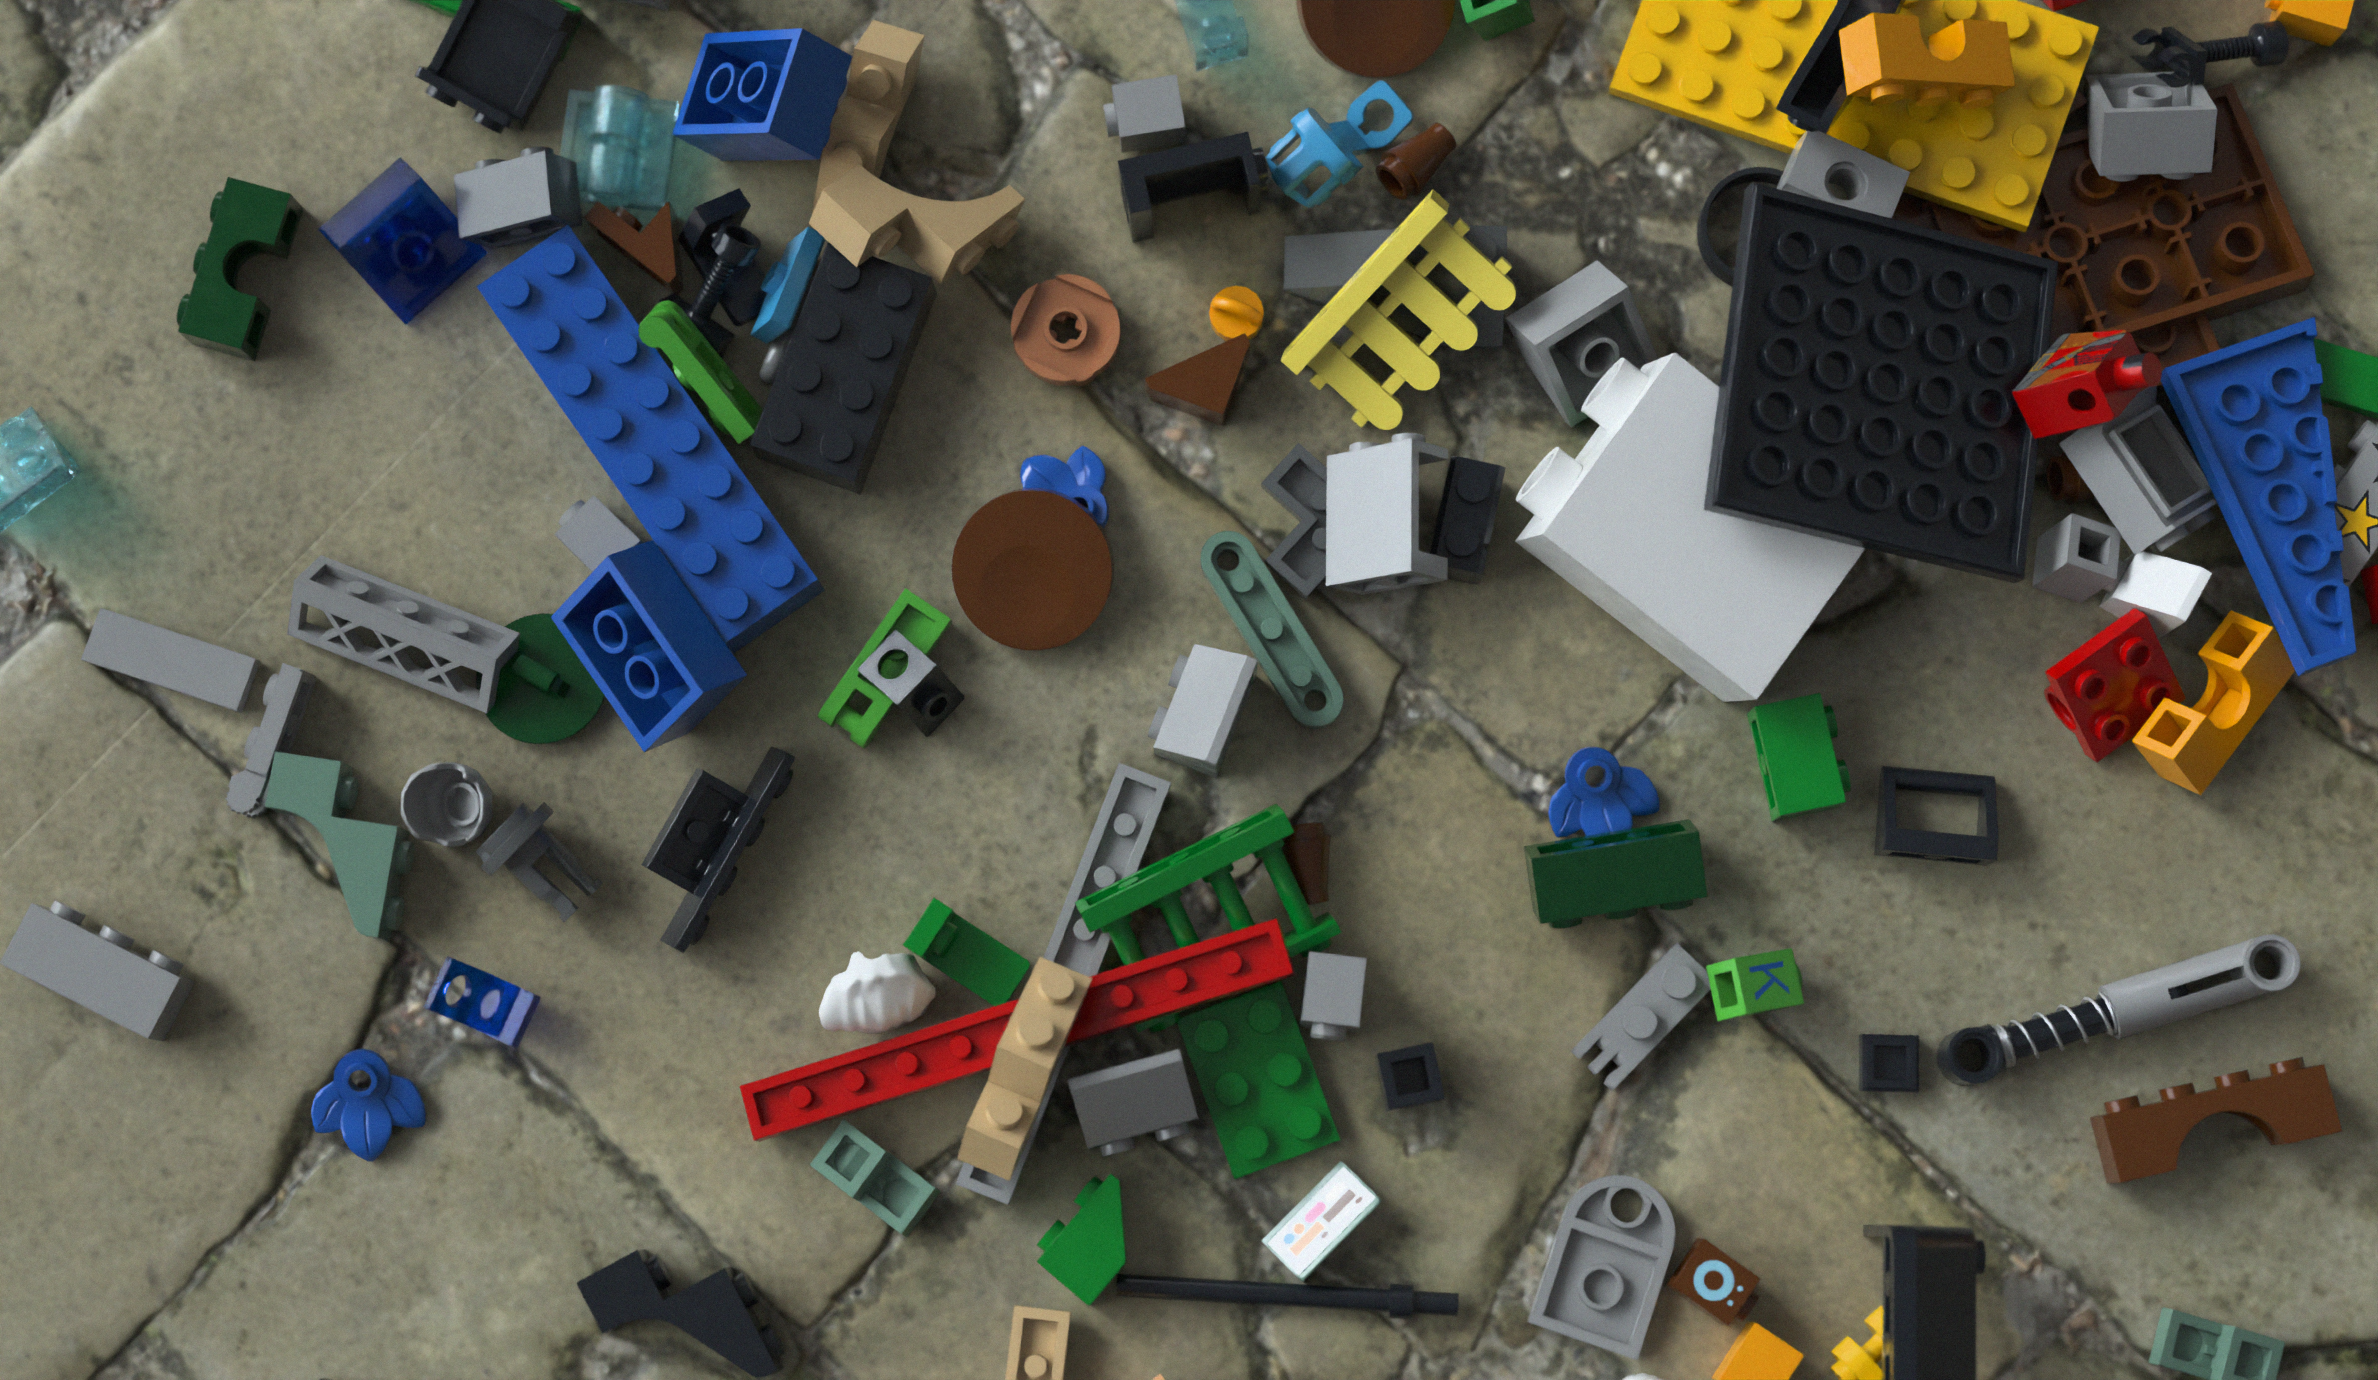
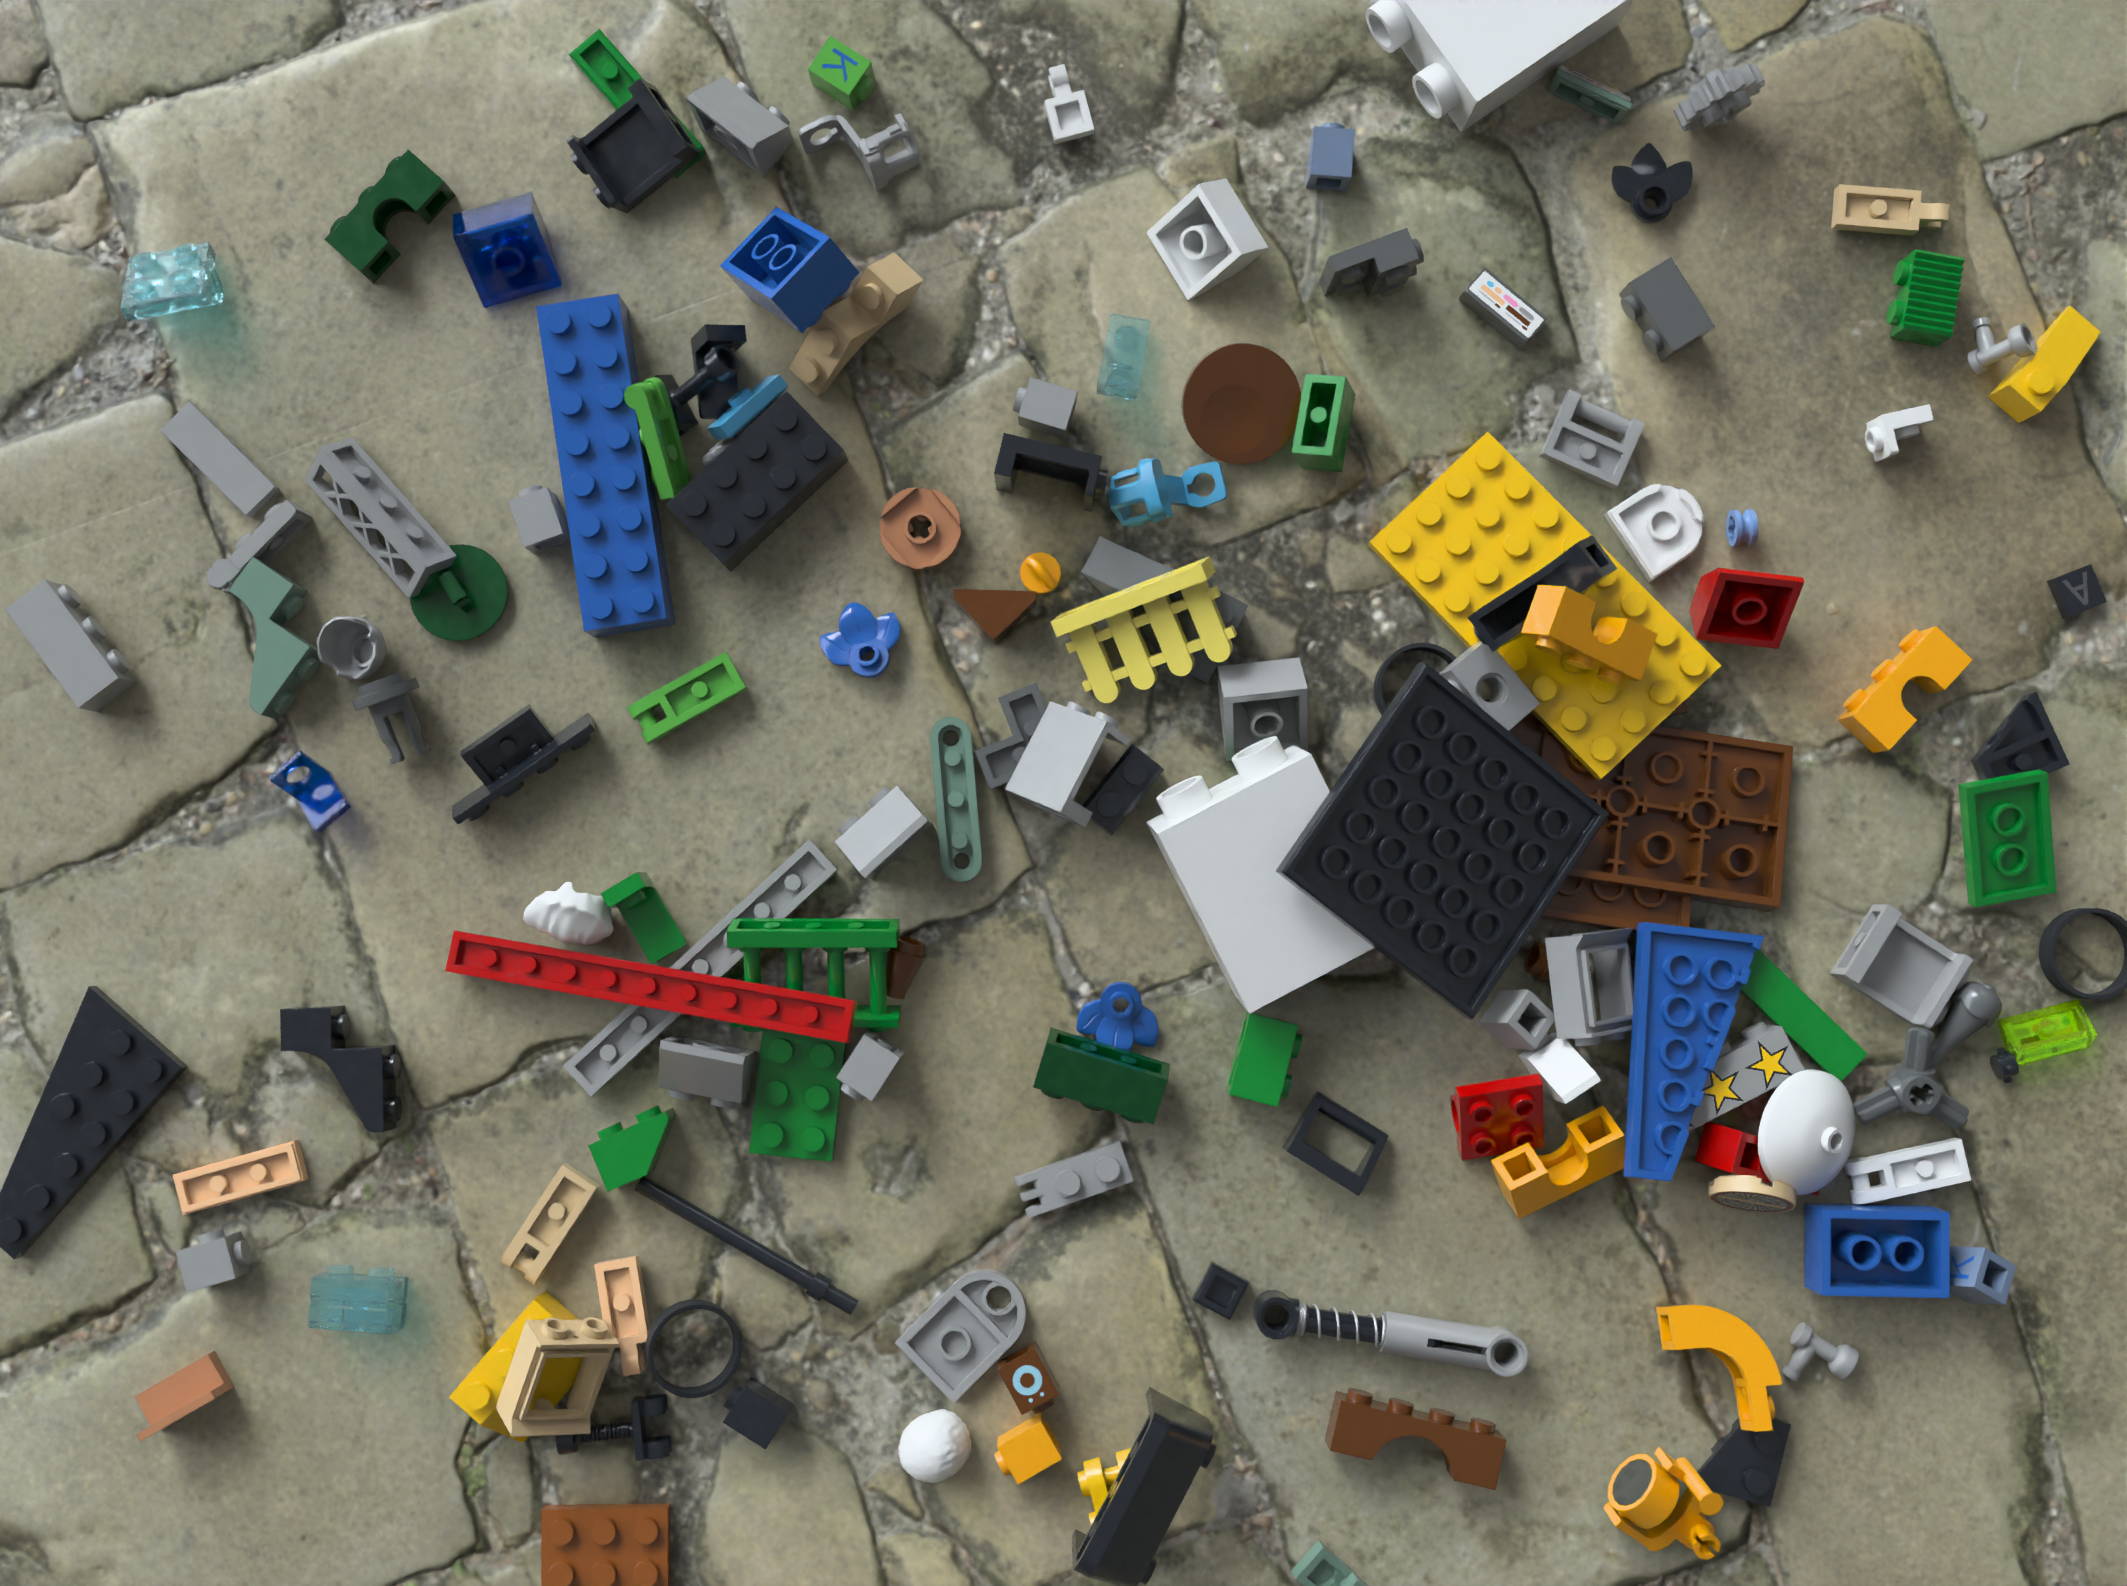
camera: 20 degrees right, 5 degrees up
(367, 1112) = (206, 826): blue plate -> none
(517, 198) = (595, 258): brick -> none
(620, 146) = (680, 257): clear light blue plate -> none
(648, 645) = (532, 607): blue brick -> none
(652, 250) = (671, 338): reddish brown slope -> none
(875, 1178) = (515, 1033): sand green slope -> none
(920, 691) = (698, 727): black bracket -> none
(943, 237) = (820, 389): tan arch -> none
(1023, 1068) = (639, 1015): tan arch -> none
(1033, 569) = (816, 680): reddish brown piece -> none
(1321, 1221) = (793, 1208): slope -> none
(1409, 1076) = (895, 1145): black brick -> none
(1412, 163) = (1209, 529): reddish brown cone -> none
(1755, 984) = (1156, 1197): bright green brick -> none
(2084, 381) = (1582, 907): red torso -> none
(2148, 126) = (1721, 749): light grey slope -> none
(2265, 45) = (1828, 731): black bar -> none

